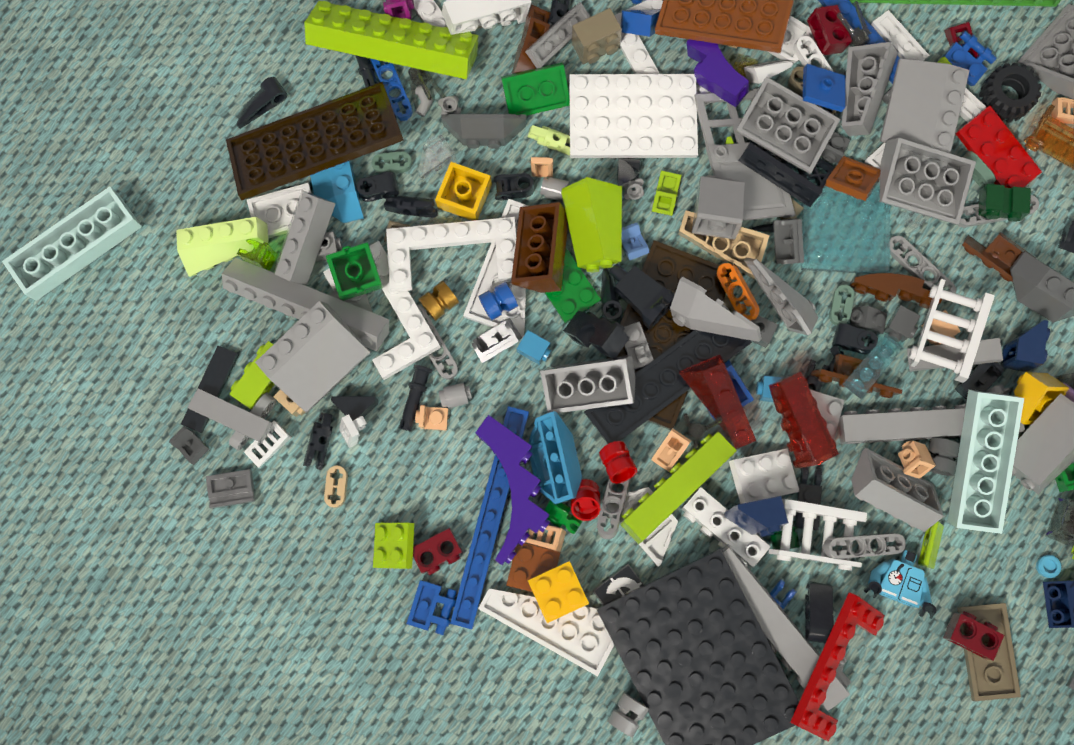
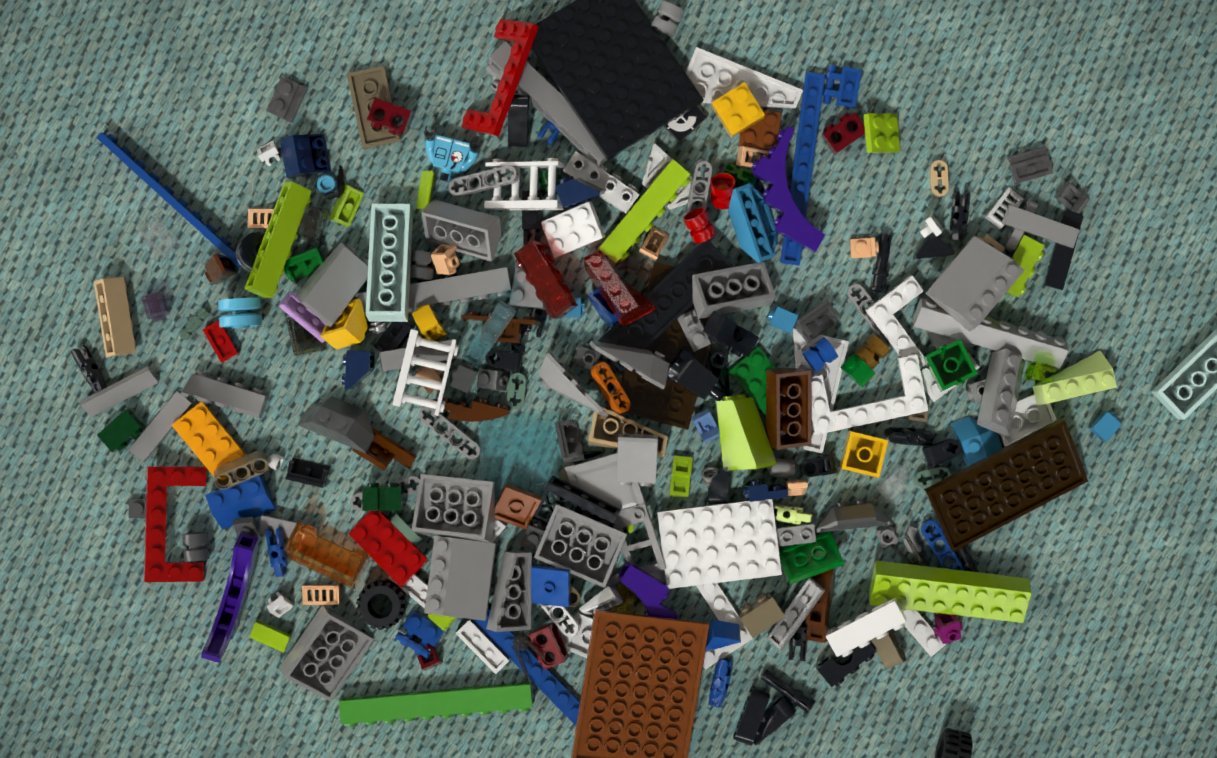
camera: 165 degrees right, 10 degrees up
(196, 194) = (1105, 425): none -> dark azure brick
(265, 99) = (1058, 525): black piece -> none
(455, 395) = (846, 269): light grey brick -> none
(458, 281) = (857, 370): none -> green brick
(548, 116) = (796, 535): none -> light grey hinge
(581, 160) = (759, 491): none -> dark blue plate
(941, 388) = (428, 323): none -> yellow slope
(1025, 538) = (346, 206): none -> lime slope
(1034, 562) = (339, 185): none -> black bar

